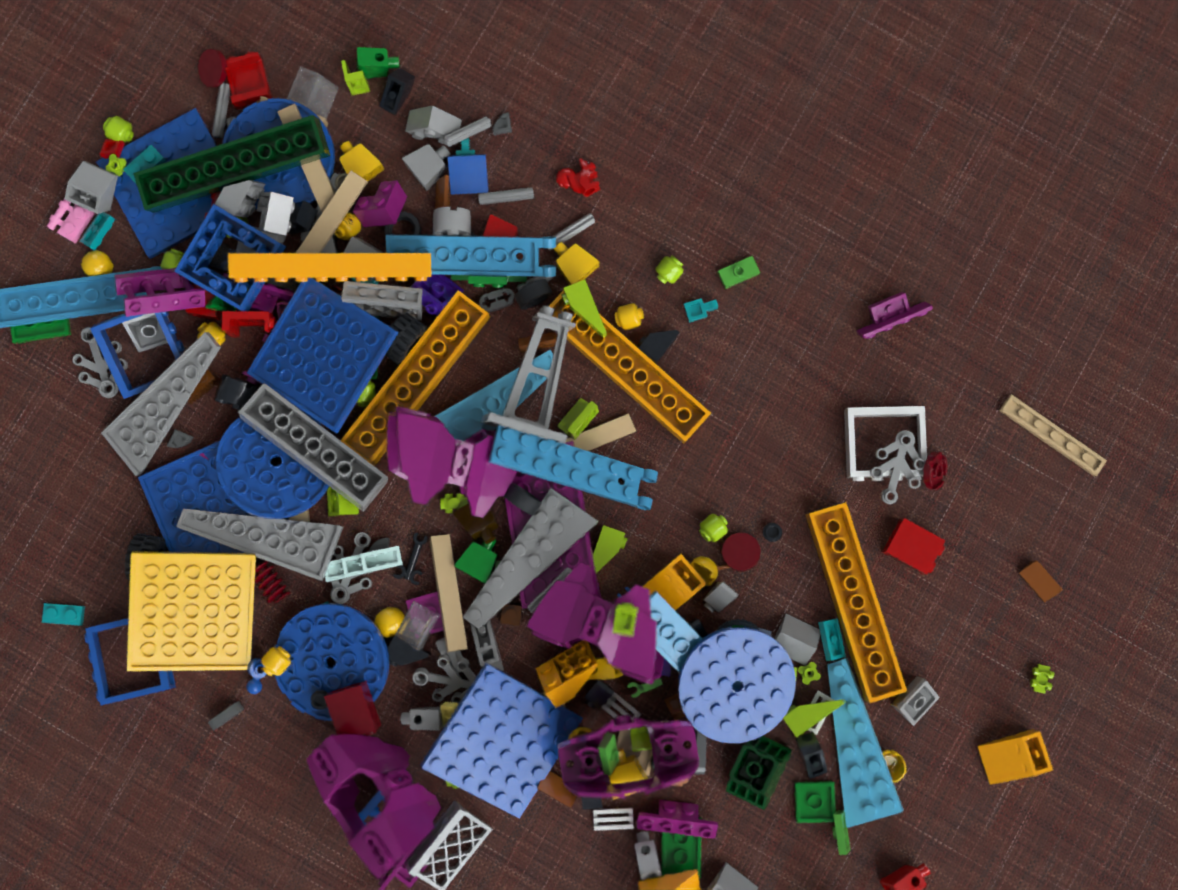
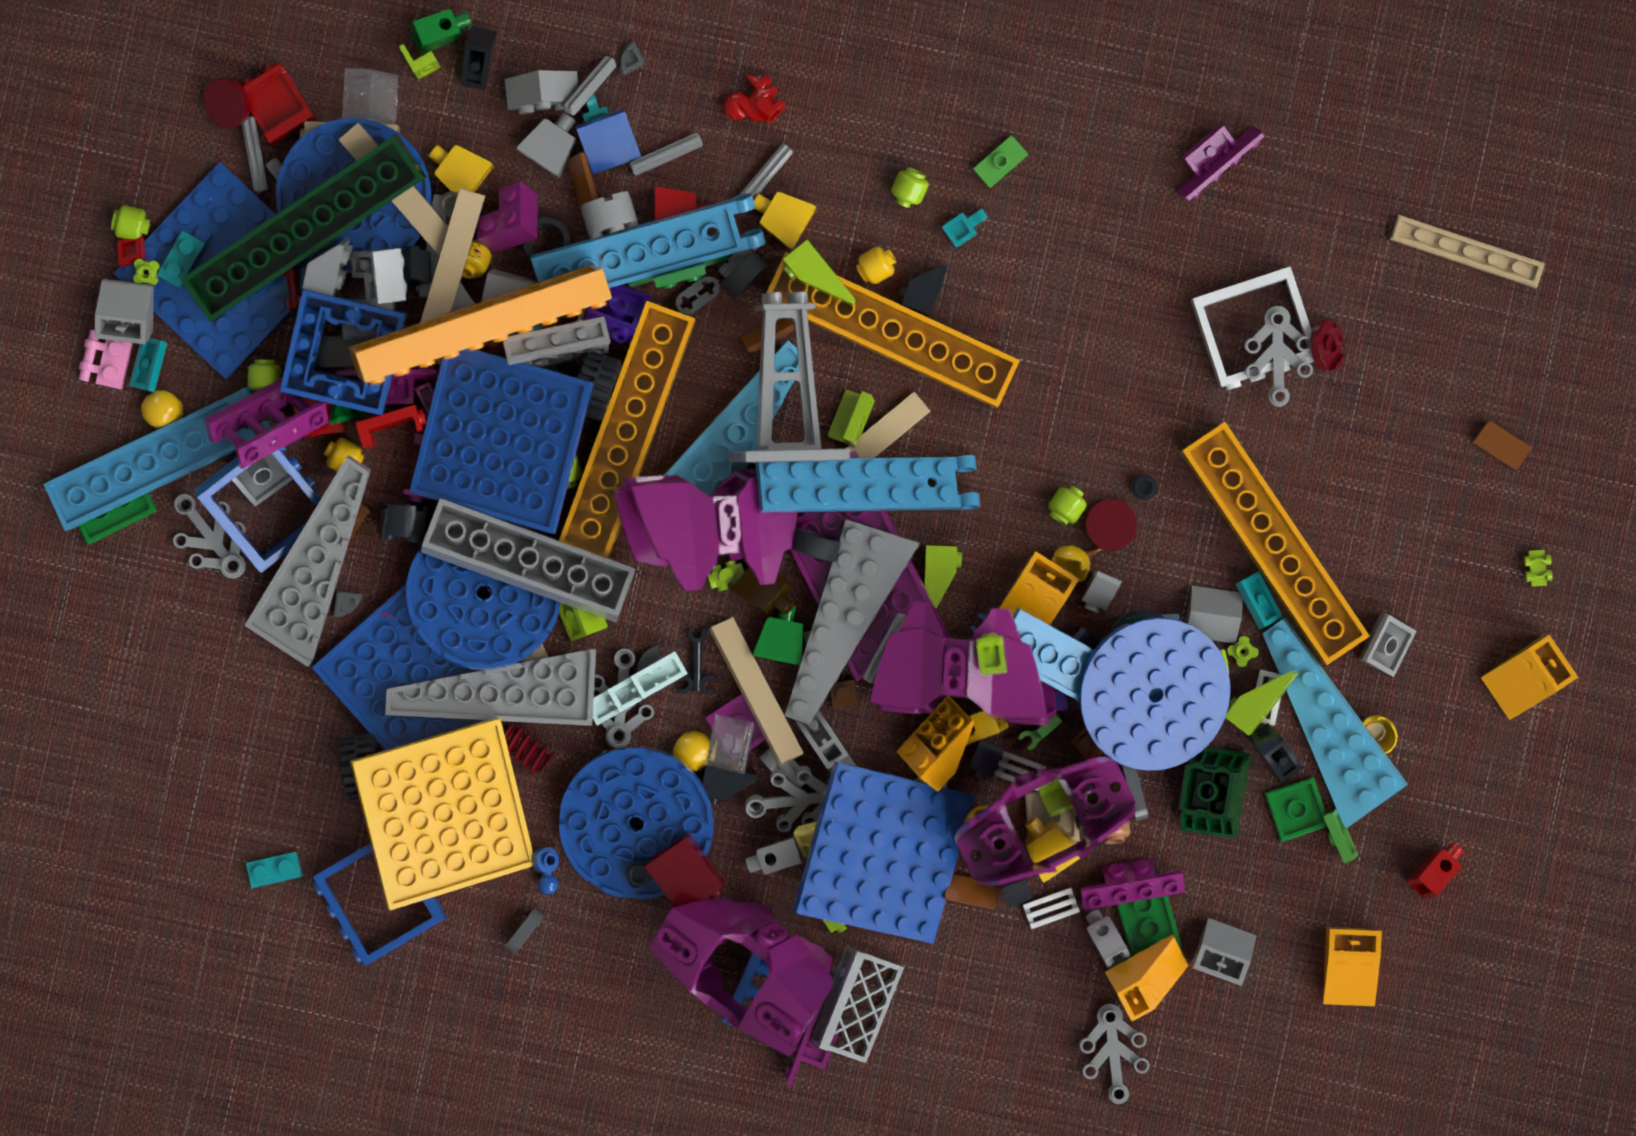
camera: 20 degrees left, 5 degrees up
(276, 661) = (568, 842): yellow head -> none
(609, 753) = (1021, 826): bright green plate -> none
(914, 546) = (1329, 450): red panel -> none

